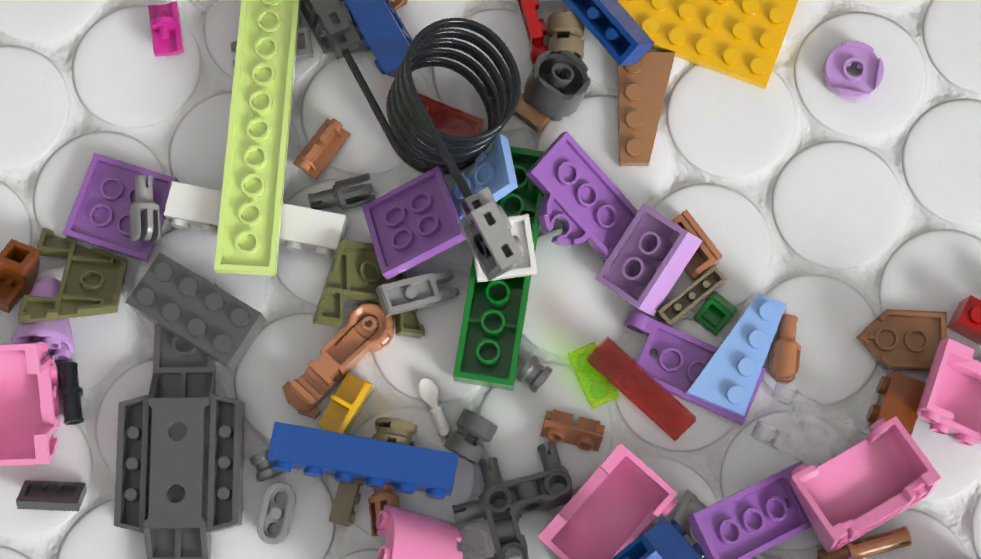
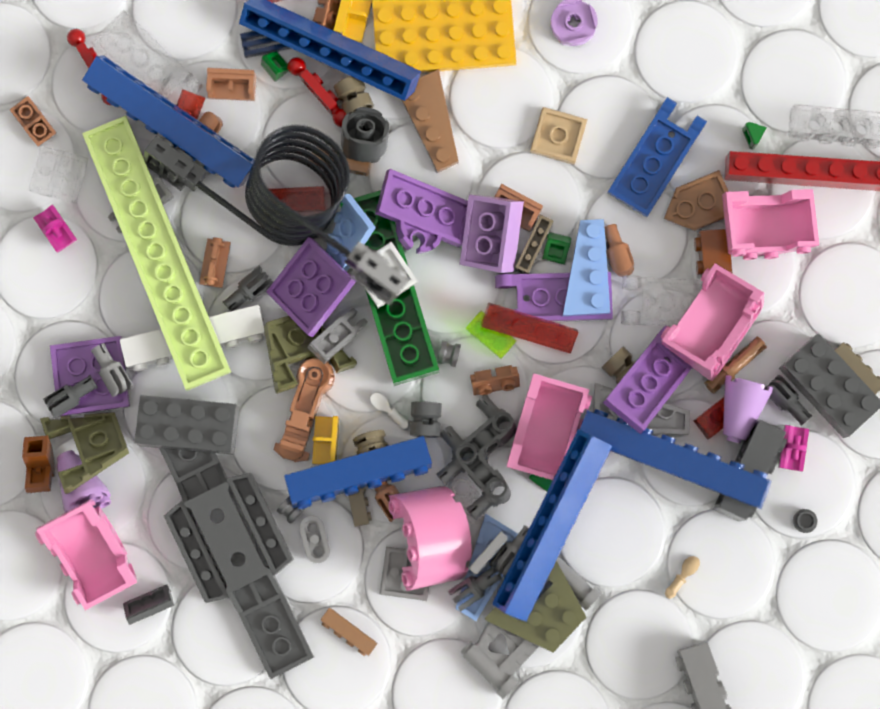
camera: 25 degrees left, 5 degrees up
(70, 393) = (123, 526): black pin -> none
(84, 217) = (68, 396): none -> dark grey arm
(726, 481) = (619, 364): none -> dark tan wheel
(776, 188) = (558, 135): none -> tan tile
(875, 266) = (654, 160): none -> blue hinge

